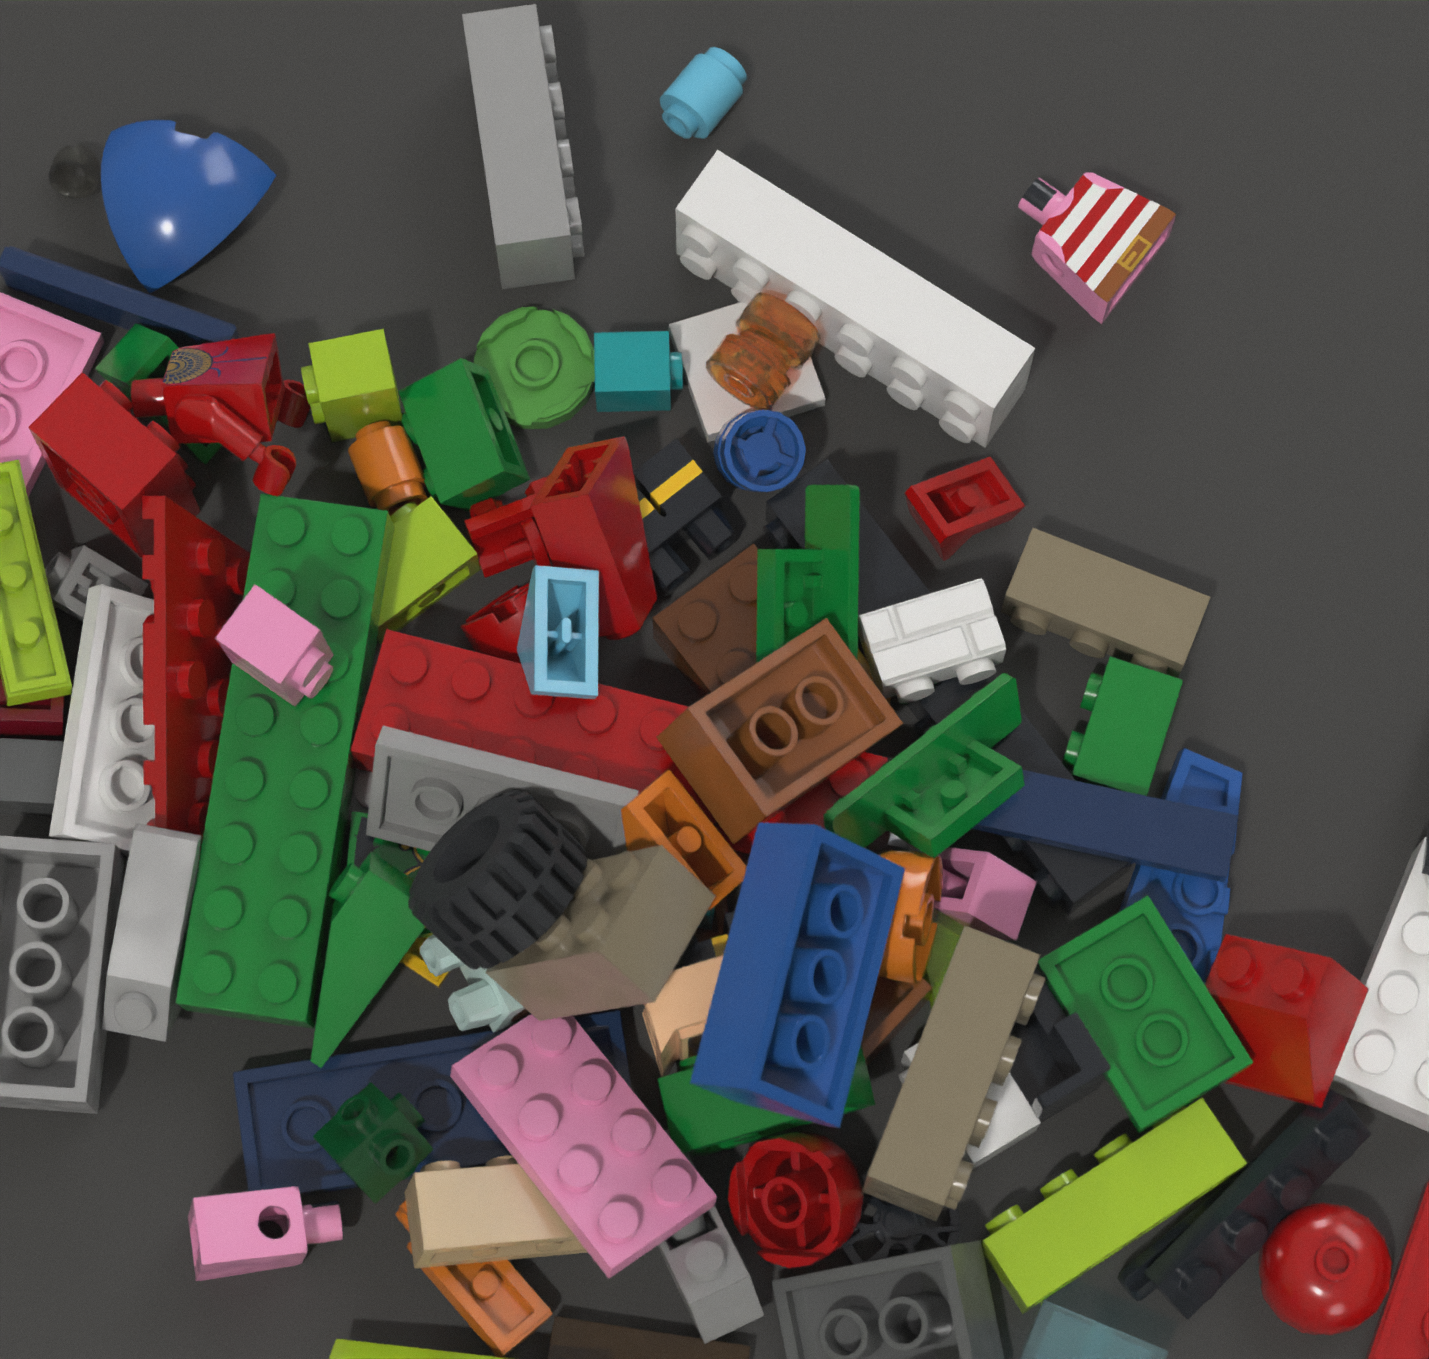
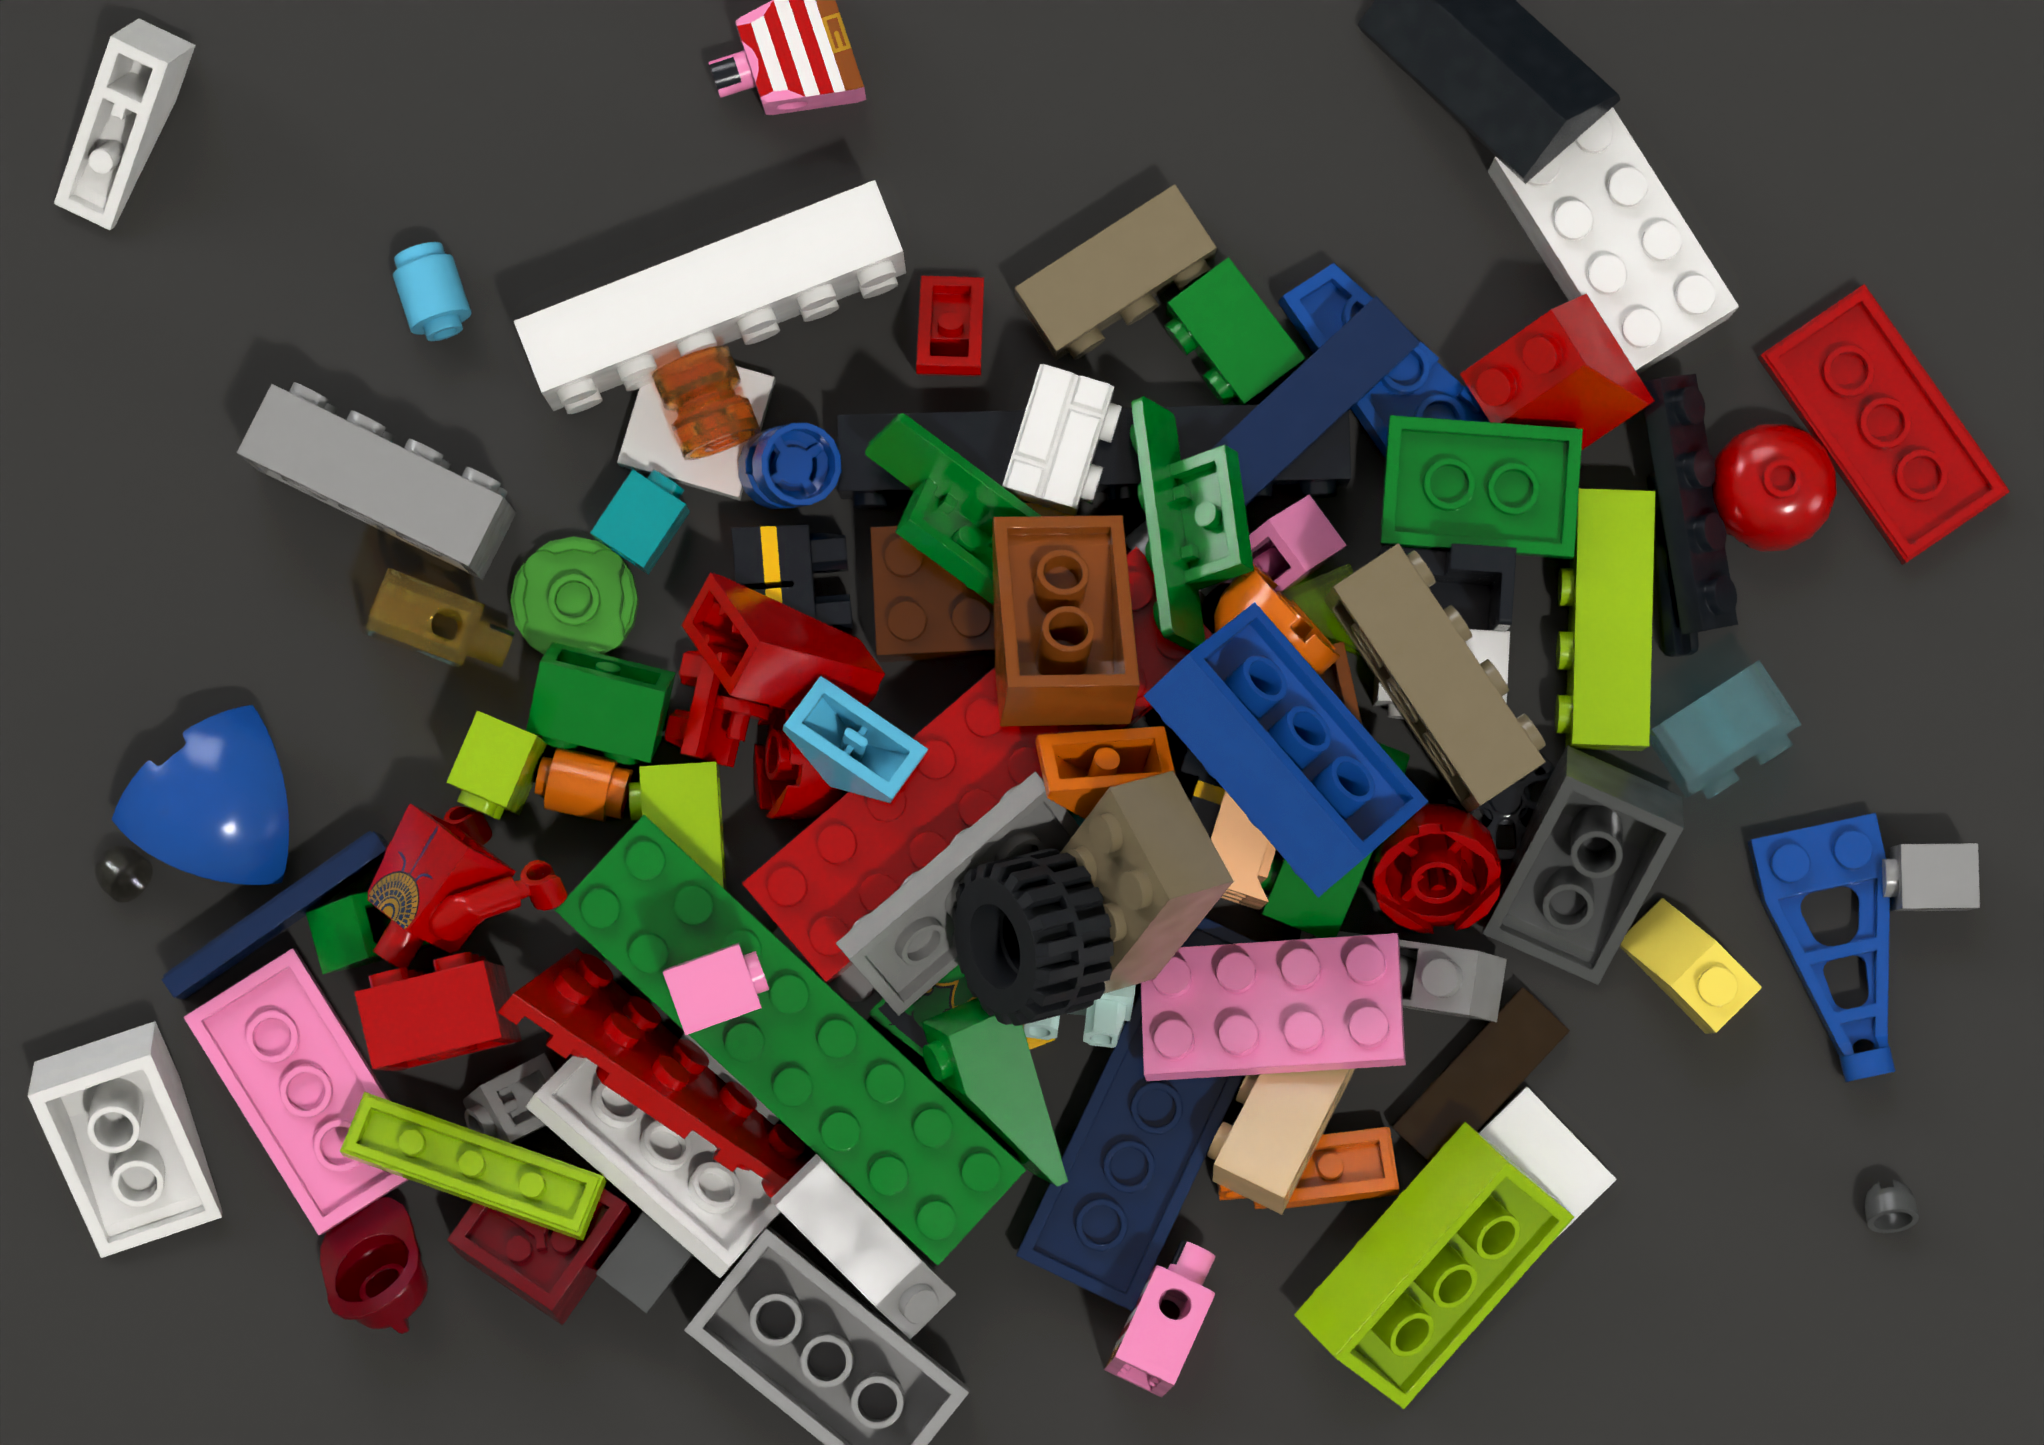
camera: 55 degrees left, 10 degrees up
(375, 1140) = (1161, 1177): dark green brick -> none
(434, 242) = (404, 618): none -> clear yellow torso

